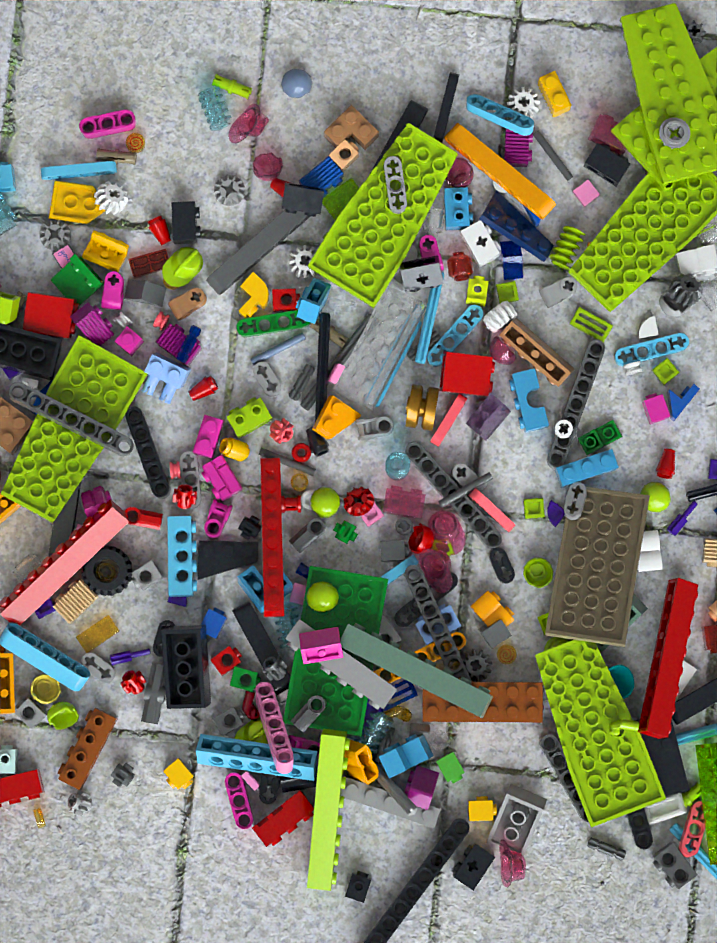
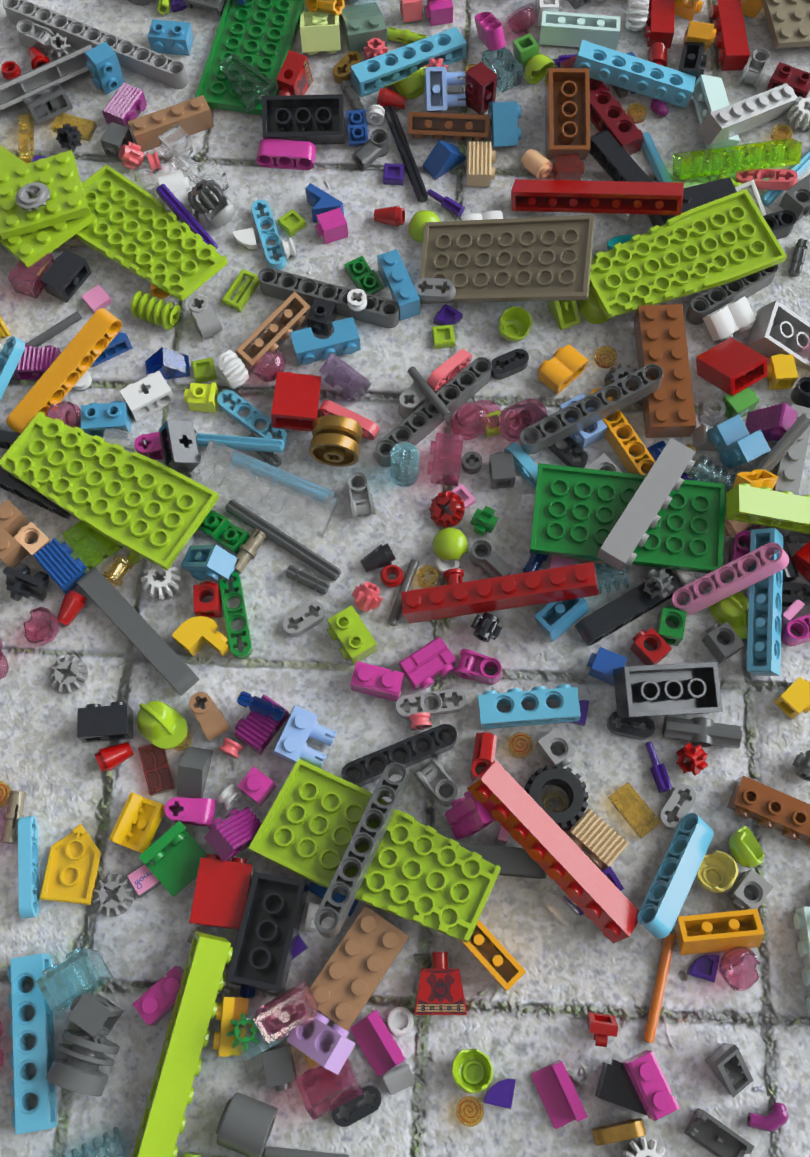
camera: 95 degrees left, 15 degrees down
(111, 198) = (67, 819): white gear -> none
(127, 480) = (434, 778): none -> light grey piece
(153, 549) = (520, 745): none -> clear yellow tile
(184, 496) = (454, 703): red gear -> none
(204, 388) = (316, 691): red cone -> none
(224, 556) = (522, 658): black wing -> none
(234, 449) = (391, 649): yellow brick -> none
(248, 706) = (703, 621): dark red arm -> none
(278, 348) = (267, 609): sand blue bar -> none
(303, 199) = (82, 575): black brick -> none
(308, 714) = (709, 538): dark grey piece -> none
(312, 143) = (23, 585): none -> black hips
(316, 226) = (118, 570): none -> clear yellow bush
(320, 645) = (630, 518): dark pink panel -> none
(322, 364) = (295, 551): black axle -> none
(322, 596) = (567, 530): lime hair -> none
(334, 418) = (350, 536): light orange wing -> none
(336, 373) = (297, 535): bright pink tile -> none
(347, 313) = (223, 532): none -> green slope
(388, 171) = (63, 466): light grey beam -> none
(415, 670) = (648, 416): sand green brick -> none
(421, 539) = (486, 440): red hair -> none
(460, 266) = (172, 410): clear red head -> none
(483, 762) = (731, 366): none -> red brick
(495, 633) = (590, 363): dark grey panel -> none
(513, 225) = (125, 366): dark blue wing -> none
(536, 770) = (729, 319): none -> white brick
(554, 397) = (321, 316): none -> black brick
(623, 724) = (676, 225): lime arm -> none
(665, 272) = (183, 214): none -> dark purple axle

